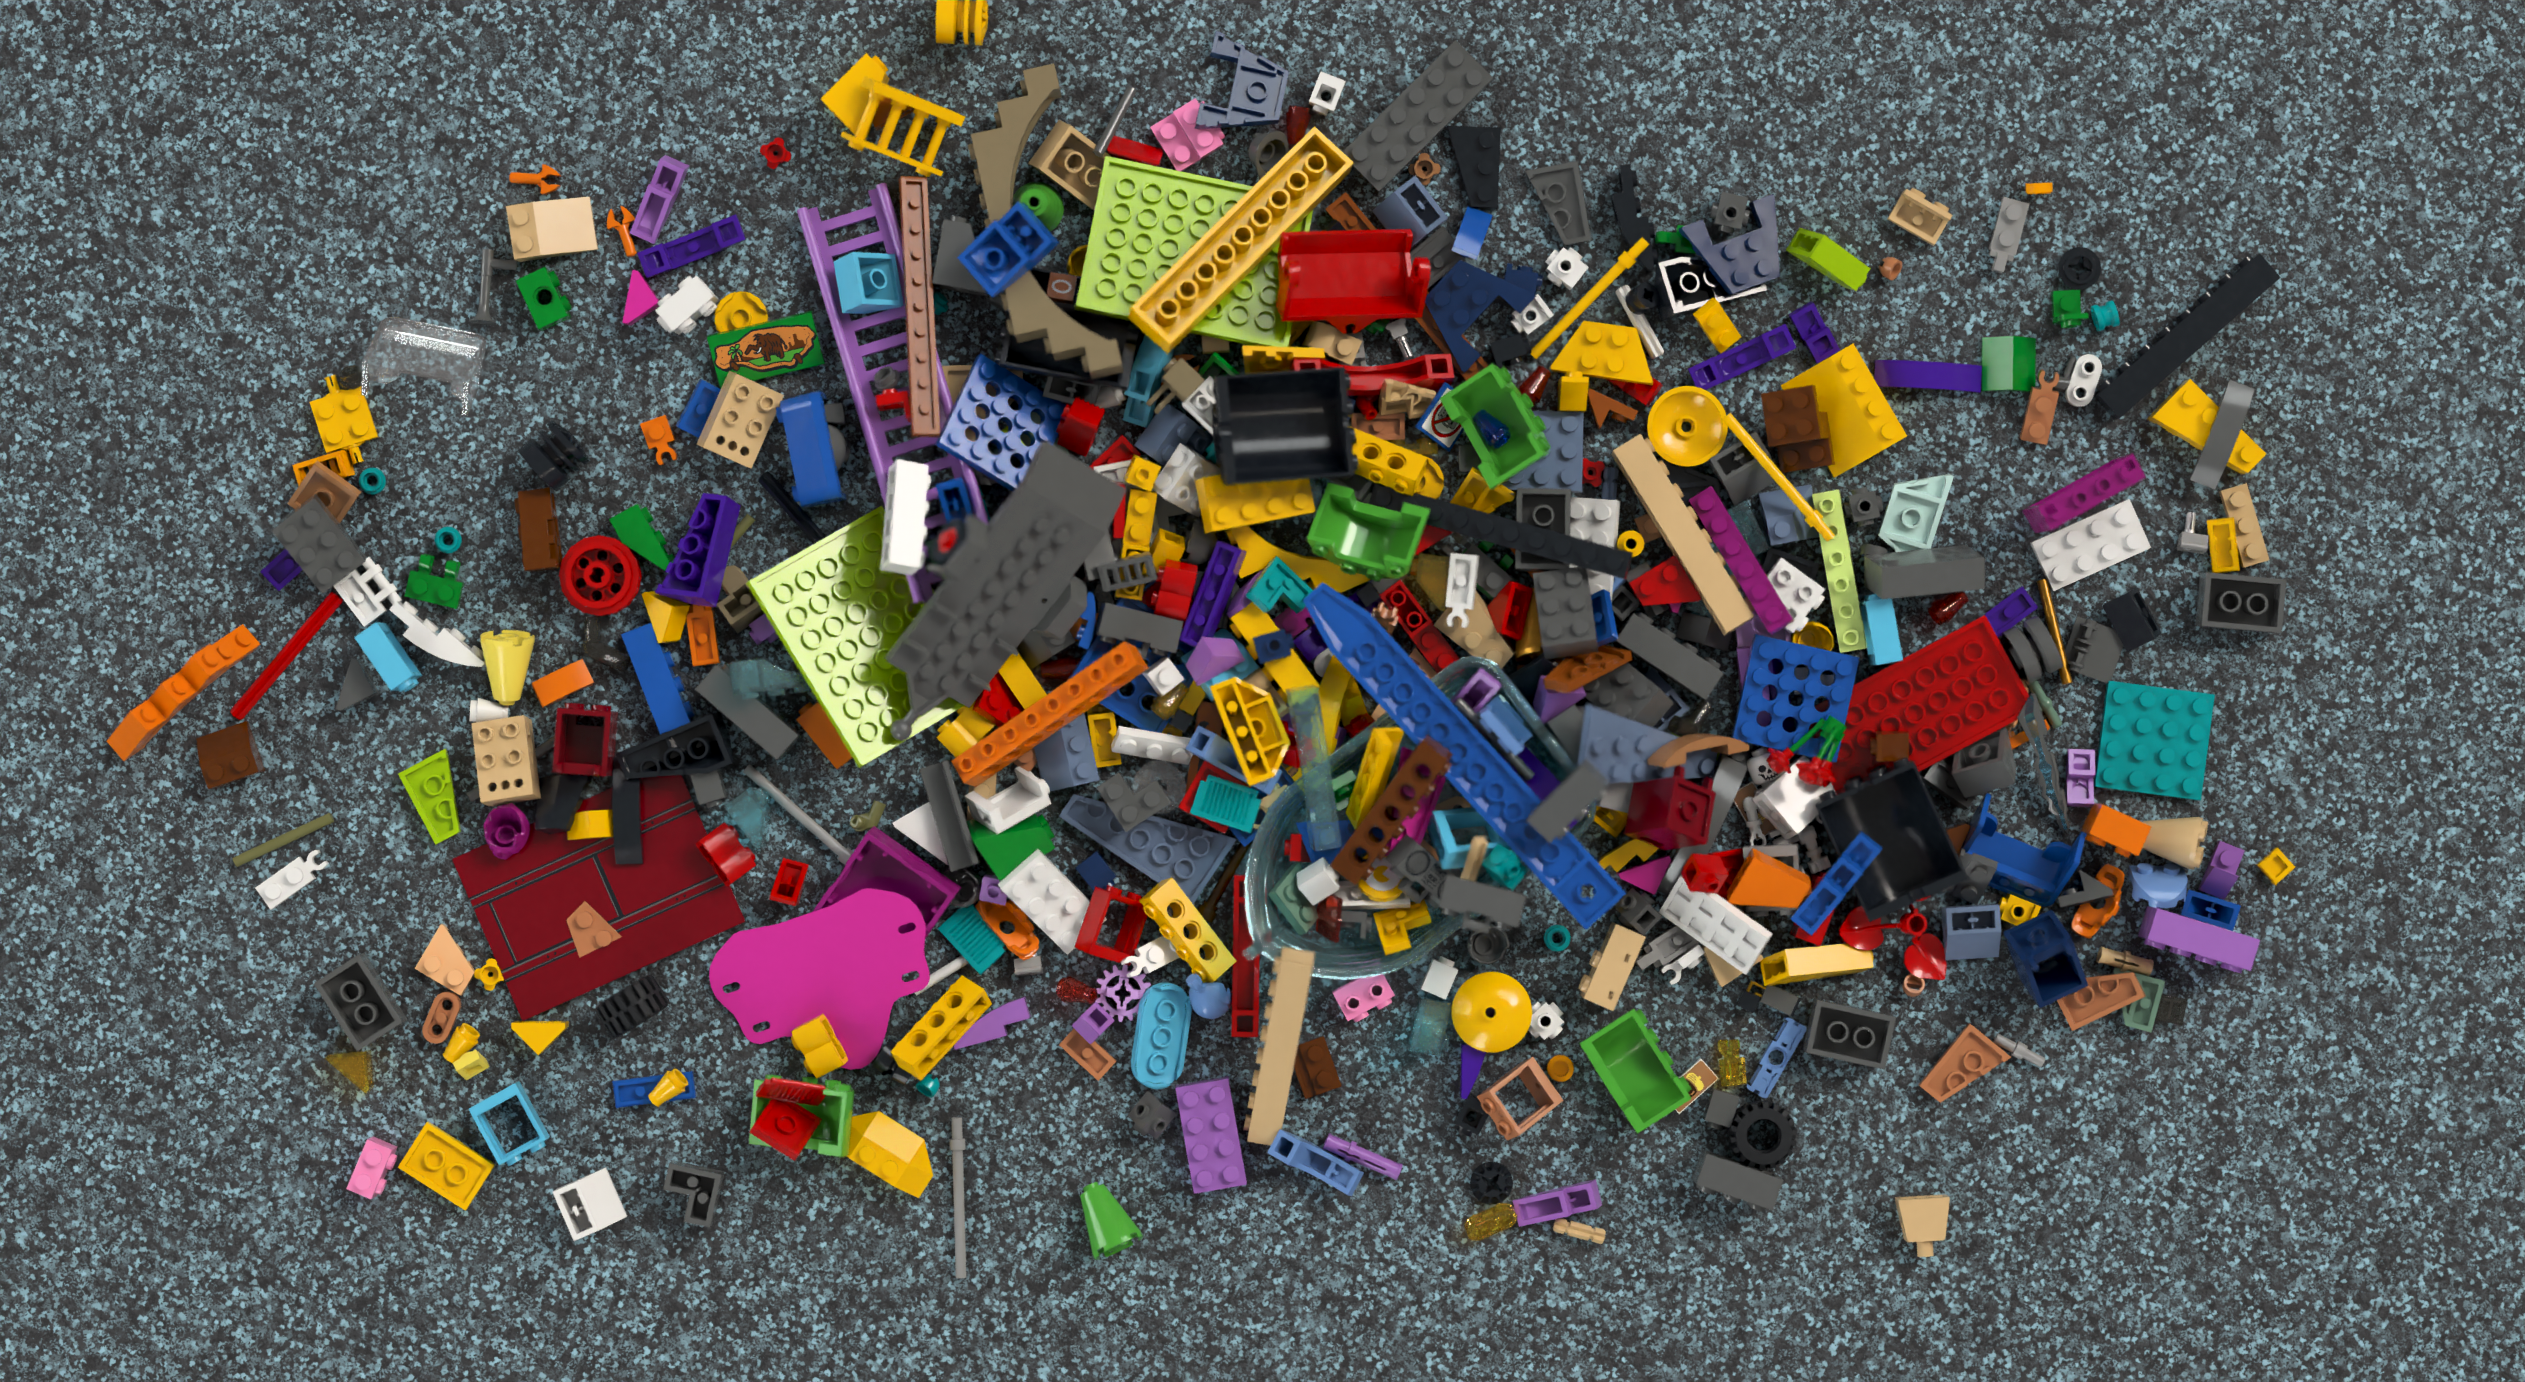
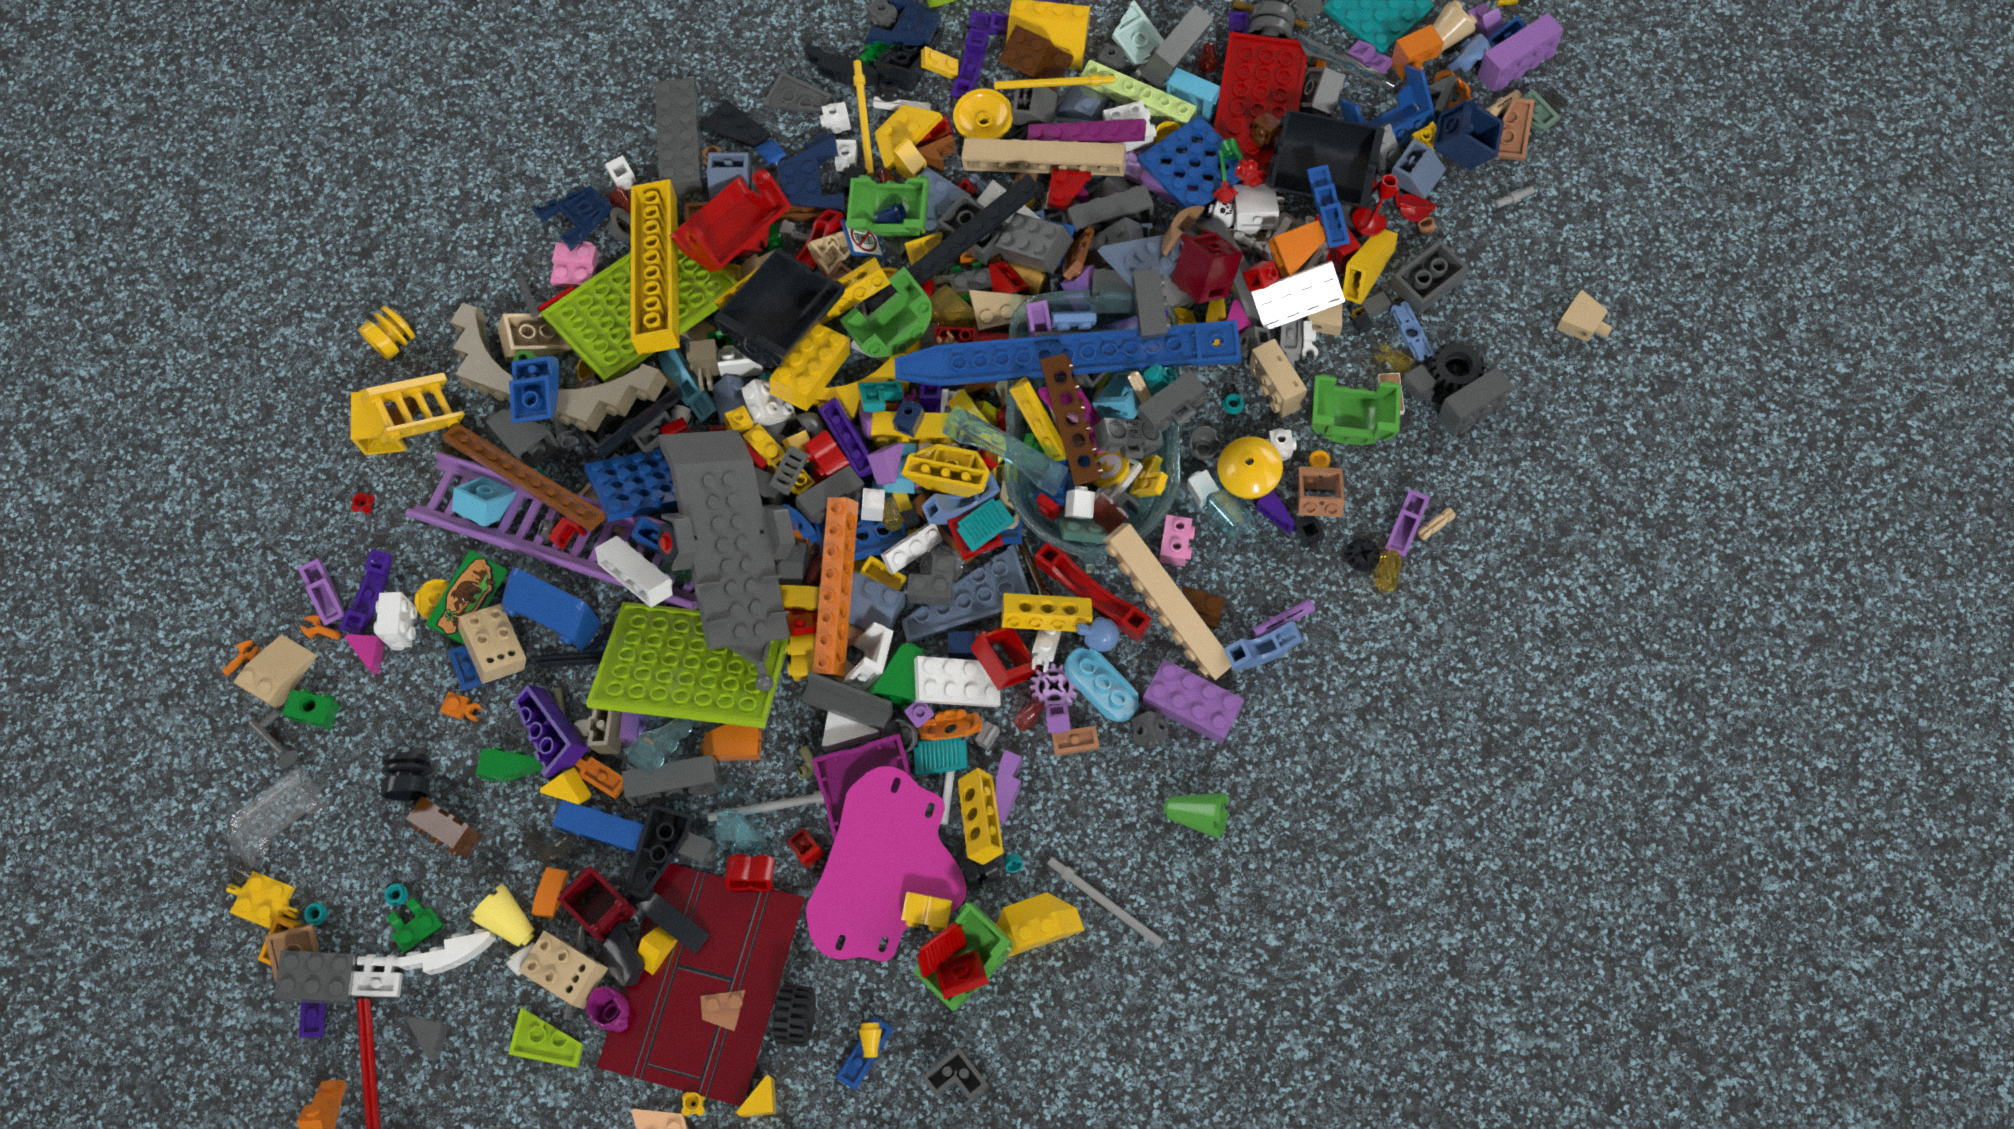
camera: 45 degrees left, 20 degrees down
(389, 657) = (428, 993): medium azure window -> none
(628, 579) = (493, 795): red wheel -> none
(1461, 586) = (968, 289): white plate -> none
(1963, 1062) = (1497, 229): nougat wing -> none

